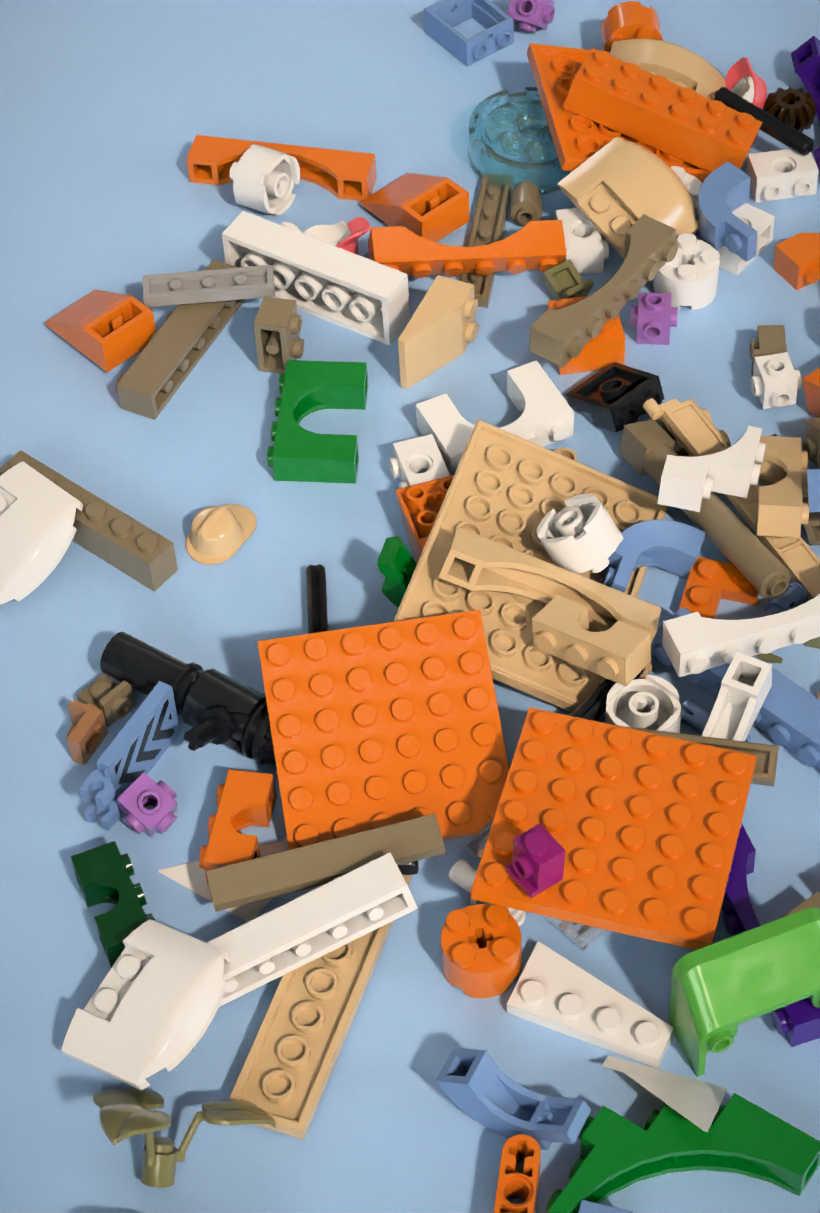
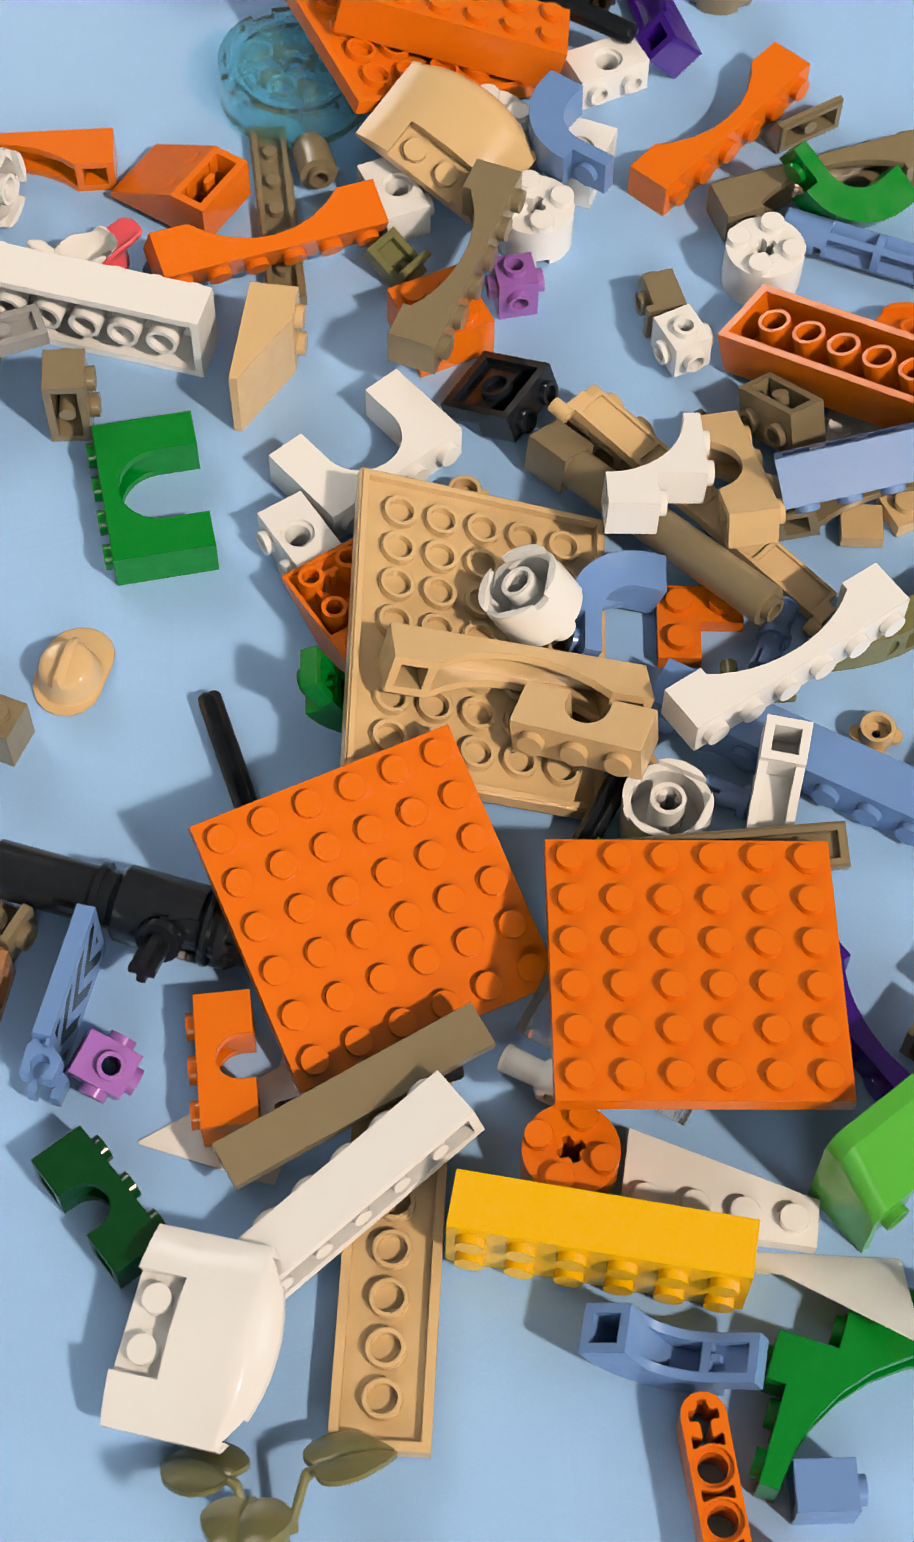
camera: 20 degrees left, 10 degrees up
(483, 1009) = (601, 1241): none -> yellow brick
(536, 861) = (630, 1051): magenta brick -> none

